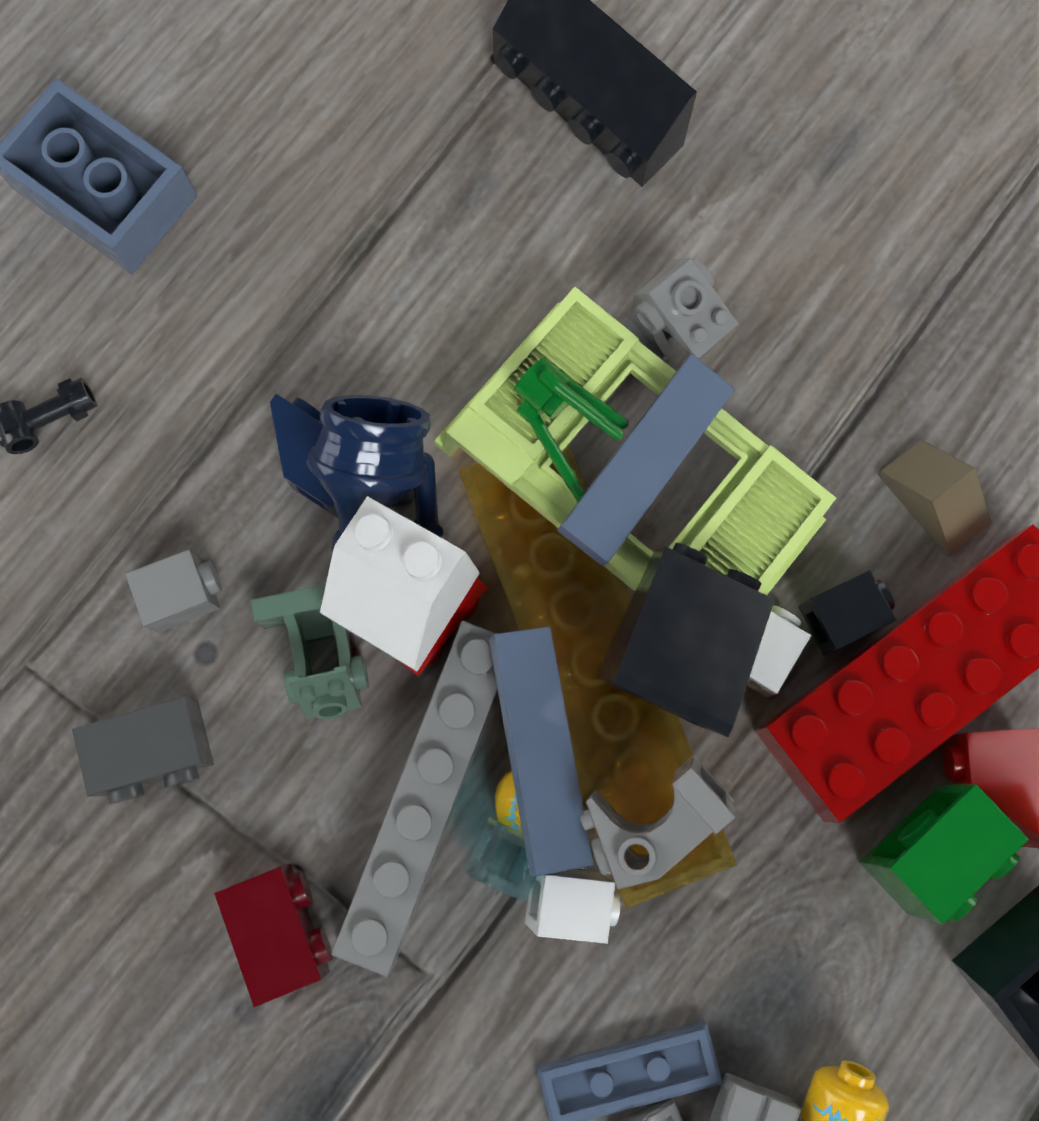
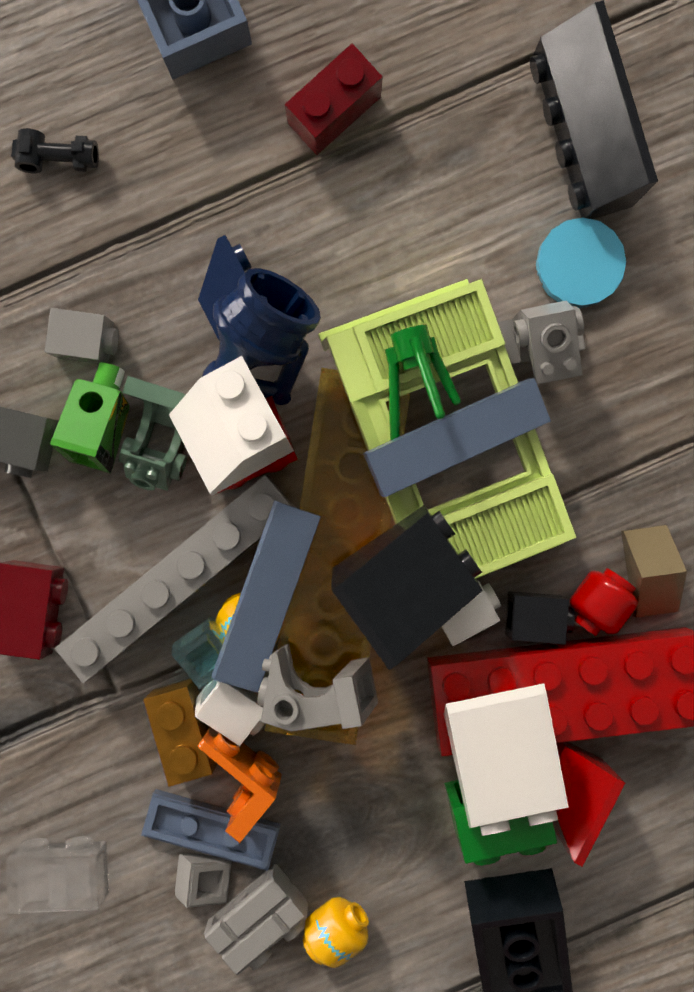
camera: 30 degrees right, 10 degrees up
(238, 673) = (88, 434): none -> bright green torso
(314, 201) = (334, 99): none -> dark red piece
(530, 973) = (178, 732): none -> pearl gold brick
(654, 1004) = (255, 773): none -> orange bracket
(664, 222) = (581, 262): none -> medium azure tile
(908, 554) = (603, 602): none -> red head
(913, 769) = (506, 758): none -> white slope

